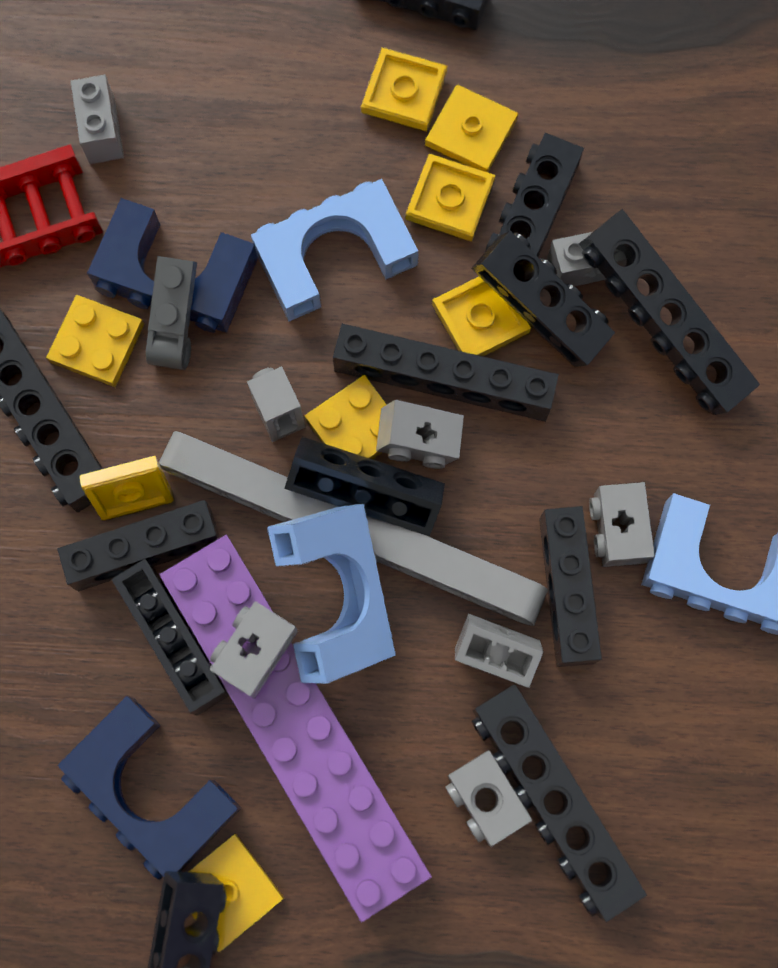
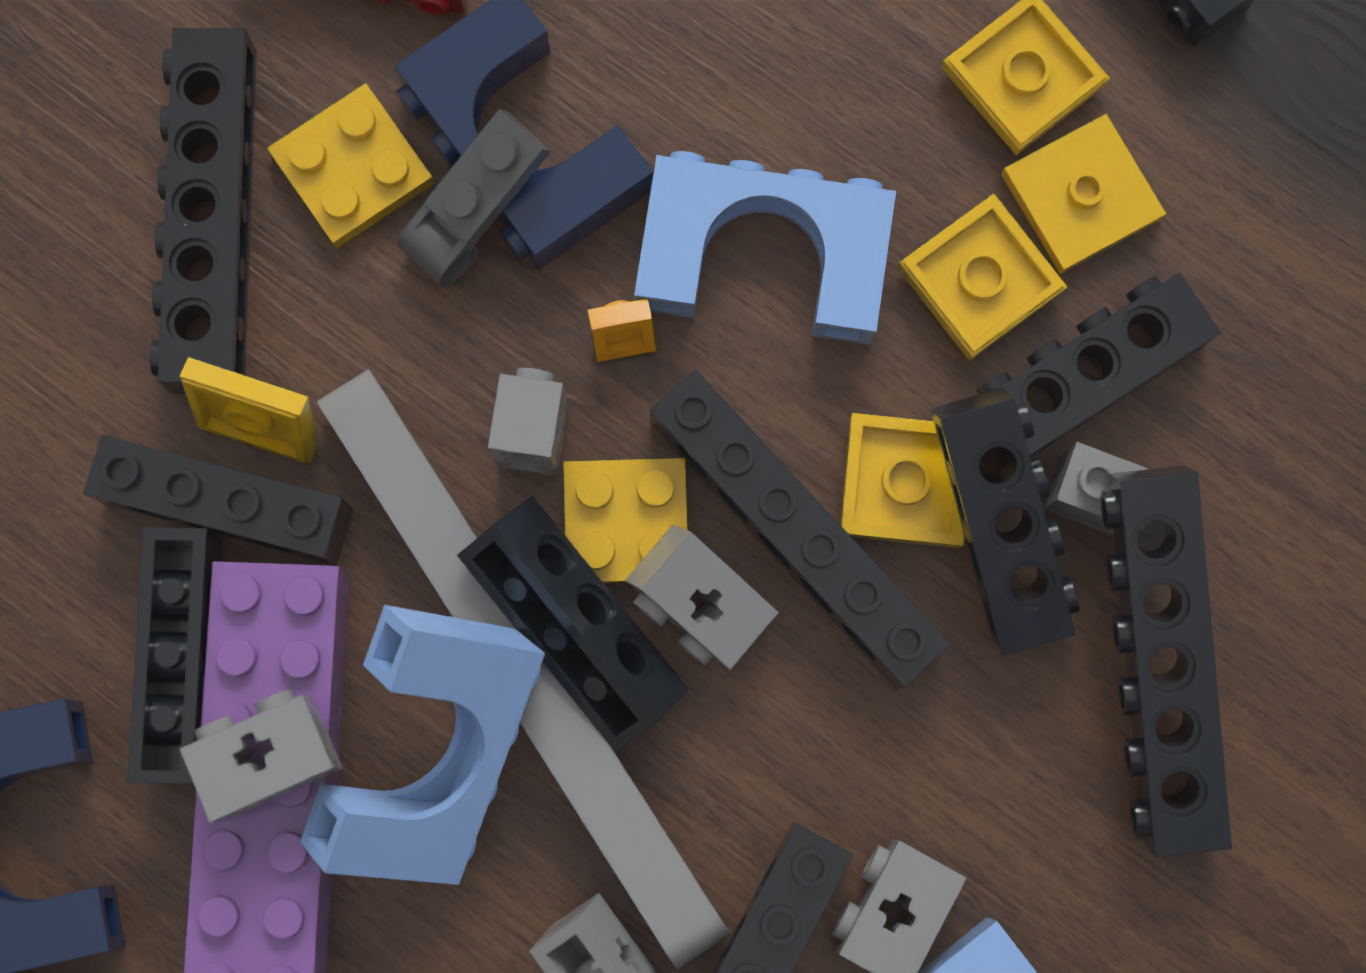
camera: 30 degrees right, 5 degrees up
(290, 332) = (622, 329): none -> light orange plate

